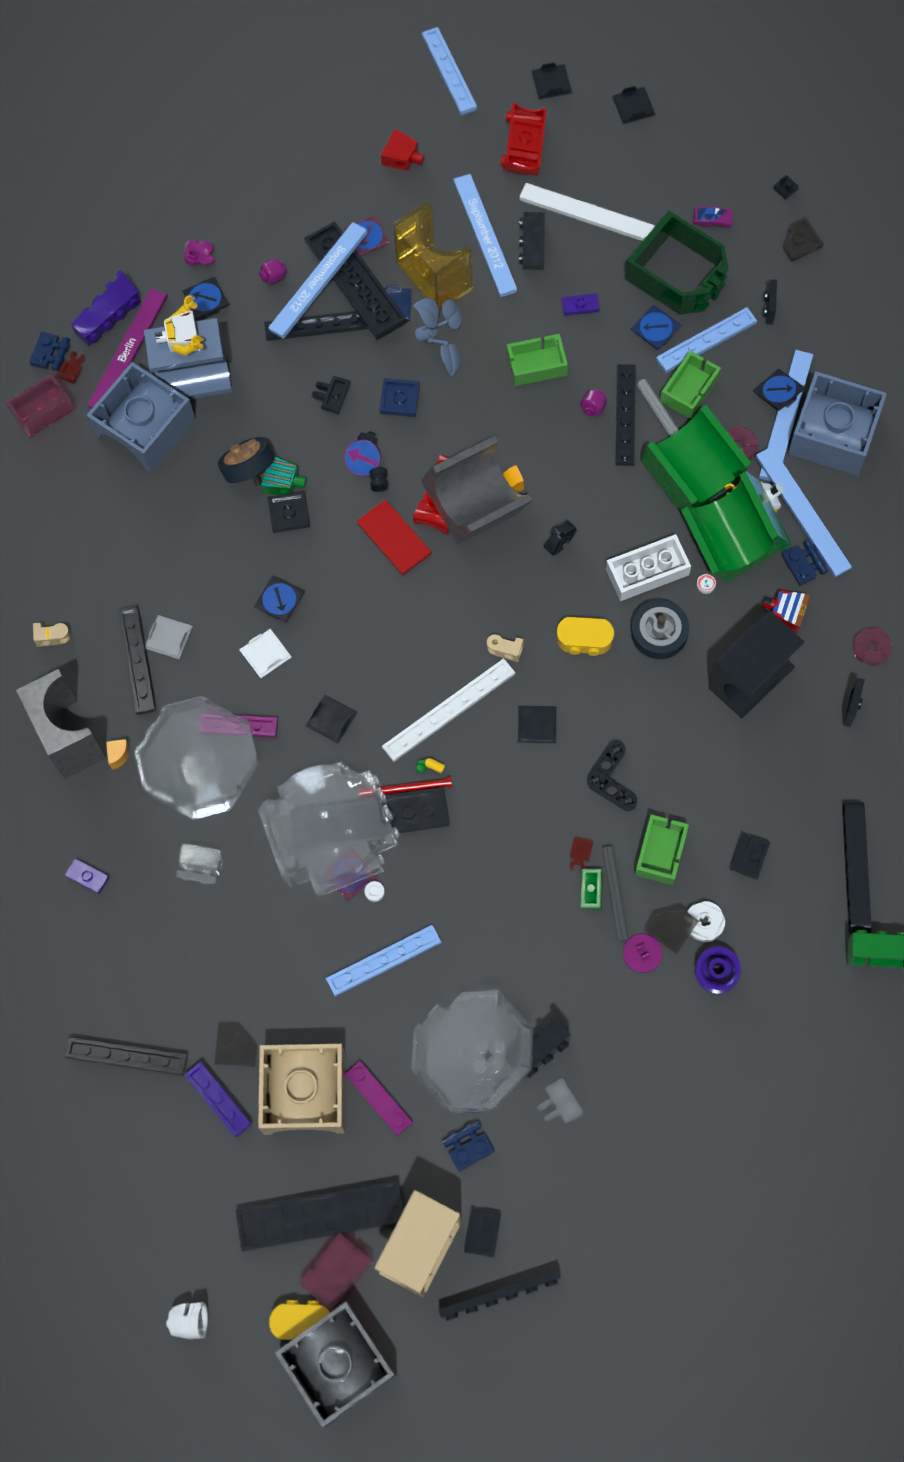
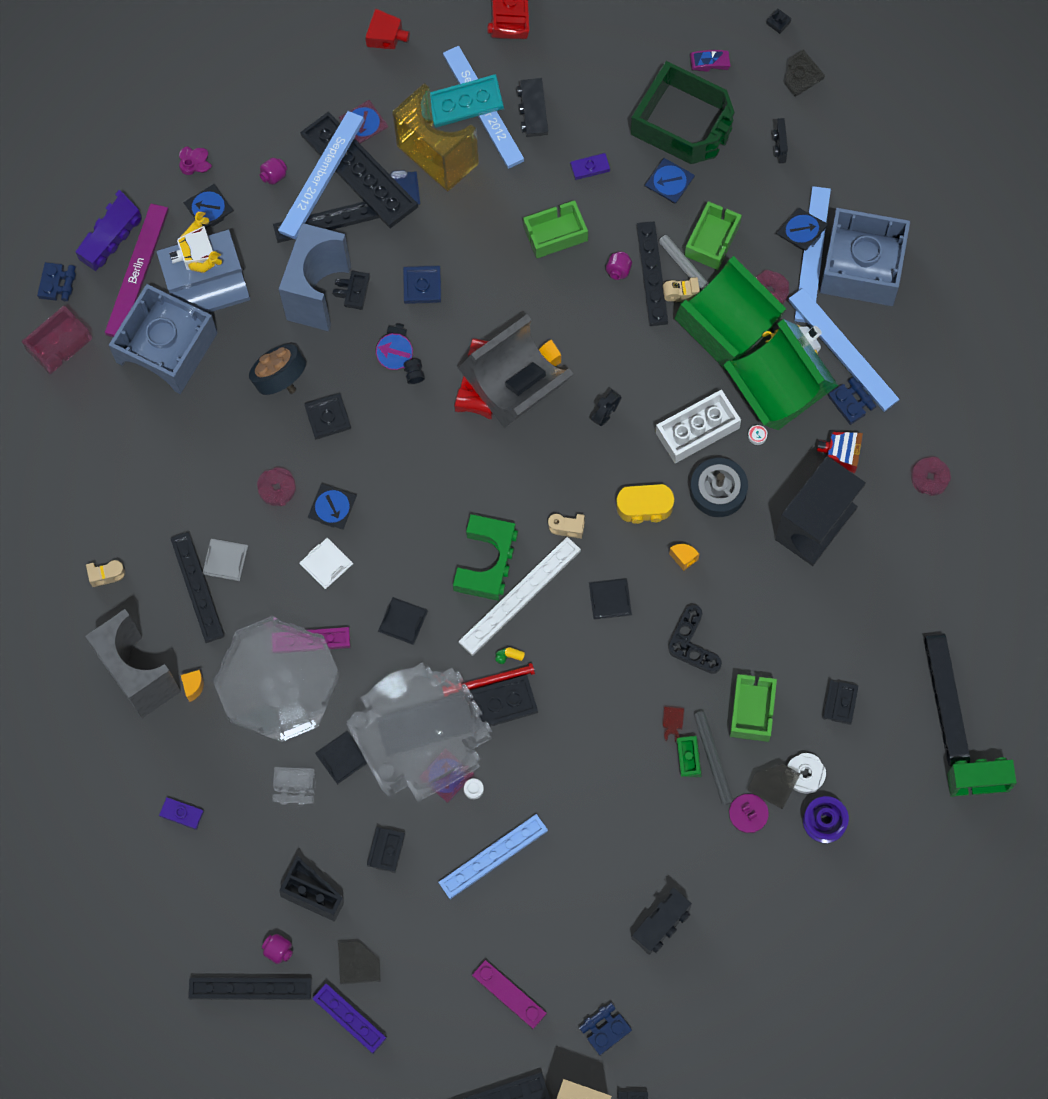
camera: 10 degrees left, 0 degrees up
(70, 369) = (81, 298): clear red plate -> none
(158, 1021) = (277, 948): none -> magenta head
(199, 969) = (310, 891): none -> black wedge
(232, 582) = (280, 496): none -> clear pink plate
(250, 843) = (341, 757): none -> black piece
(279, 939) = (386, 849): none -> black plate
(281, 478) = (315, 383): green torso -> none
(295, 357) = (314, 256): none -> sand blue piece
(302, 1088) = (432, 995): tan piece -> none
(394, 537) = (438, 428): red tile -> none
(421, 693) = (488, 583): none -> green arch
(429, 311) = (441, 195): sand blue plant -> none
(453, 1045) = (576, 930): clear windscreen -> none
(468, 227) = (466, 100): none -> teal tile
(484, 499) = (525, 378): none -> black tile
(563, 1101) = (692, 970): clear hinge -> none
(585, 212) = (582, 71): white tile -> none
(616, 691) = (684, 555): none -> light orange brick
(647, 433) = (681, 290): none -> tan leg
(707, 339) = (722, 186): light blue tile -> none
(854, 702) = (921, 535): black plate -> none

